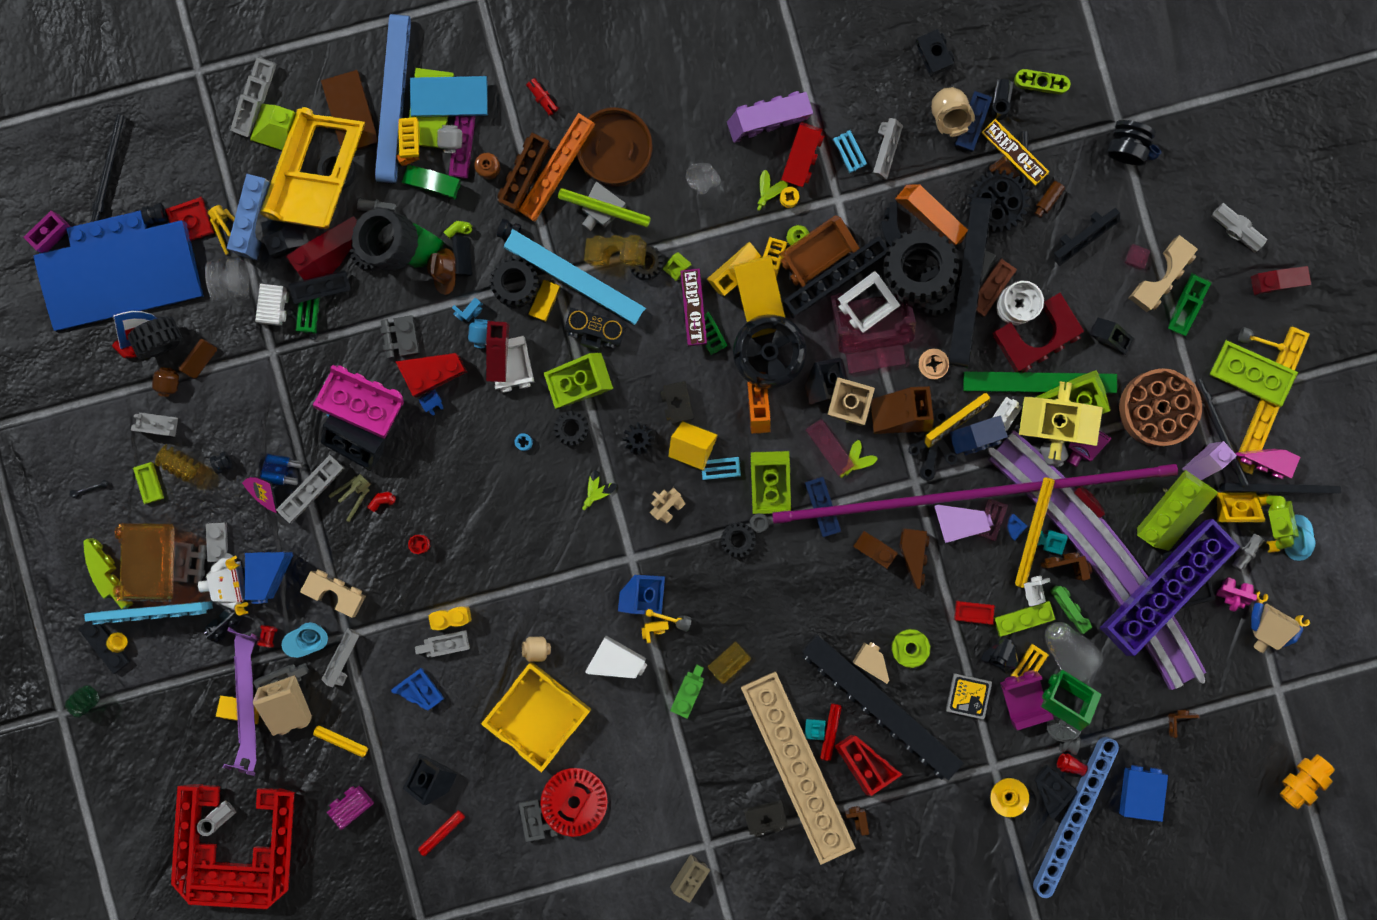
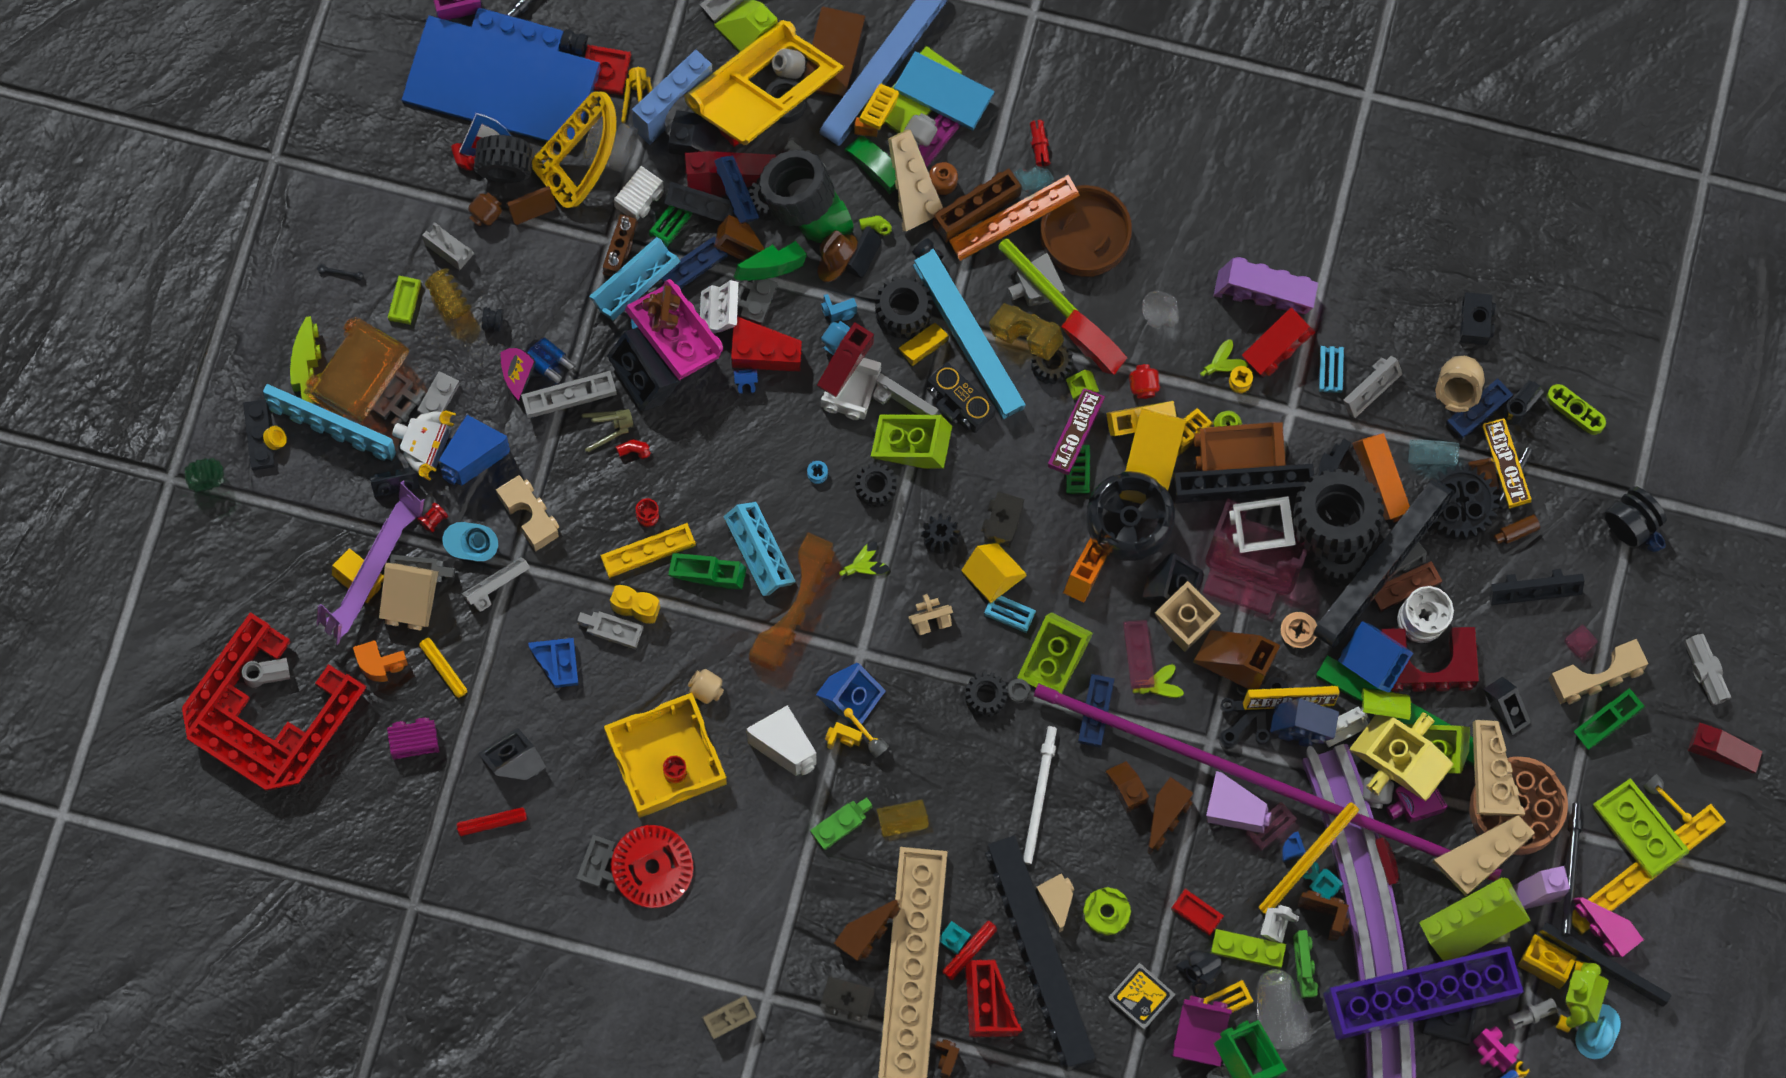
camera: 25 degrees right, 15 degrees down
(195, 322) = (552, 165): none -> yellow beam
(285, 370) = (627, 227): none -> reddish brown piece
(289, 769) = (374, 665): none -> orange brick
(304, 372) = (633, 277): none -> medium azure fence
(322, 140) = (789, 63): none -> light grey head
(337, 394) = (658, 308): none -> reddish brown hips
(340, 263) = (736, 189): none -> dark blue plate
(343, 336) = (695, 263): none -> dark blue plate
(365, 300) = (737, 239): none -> reddish brown slope
(381, 360) = (719, 306): none -> white slope
(399, 304) = (771, 263): none -> green slope
(435, 570) = (648, 550): none -> yellow tile
(472, 187) = (914, 185): none -> tan wing
(487, 562) = (707, 570): none -> green slope
(512, 526) = (755, 548): none -> medium azure fence
(538, 351) = (889, 389): none -> light grey hinge
(549, 723) = (674, 764): none -> red wheel
(555, 129) = (1035, 179): none -> clear light blue slope
(564, 592) = (771, 644): none -> clear orange arch
(669, 232) = (1094, 343): none -> red slope
(721, 239) = (1144, 381): none -> red head
(749, 763) = (861, 933): none -> reddish brown slope
(805, 556) = (1047, 751): none -> white bar
(958, 174) = (1433, 452): none -> clear light blue slope
(1002, 356) = (1375, 656): none -> blue brick
(1029, 387) = (1386, 703): none -> lime slope
(1139, 405) = (1493, 774): none -> tan wing
(1159, 462) = (1477, 859): none -> tan wing

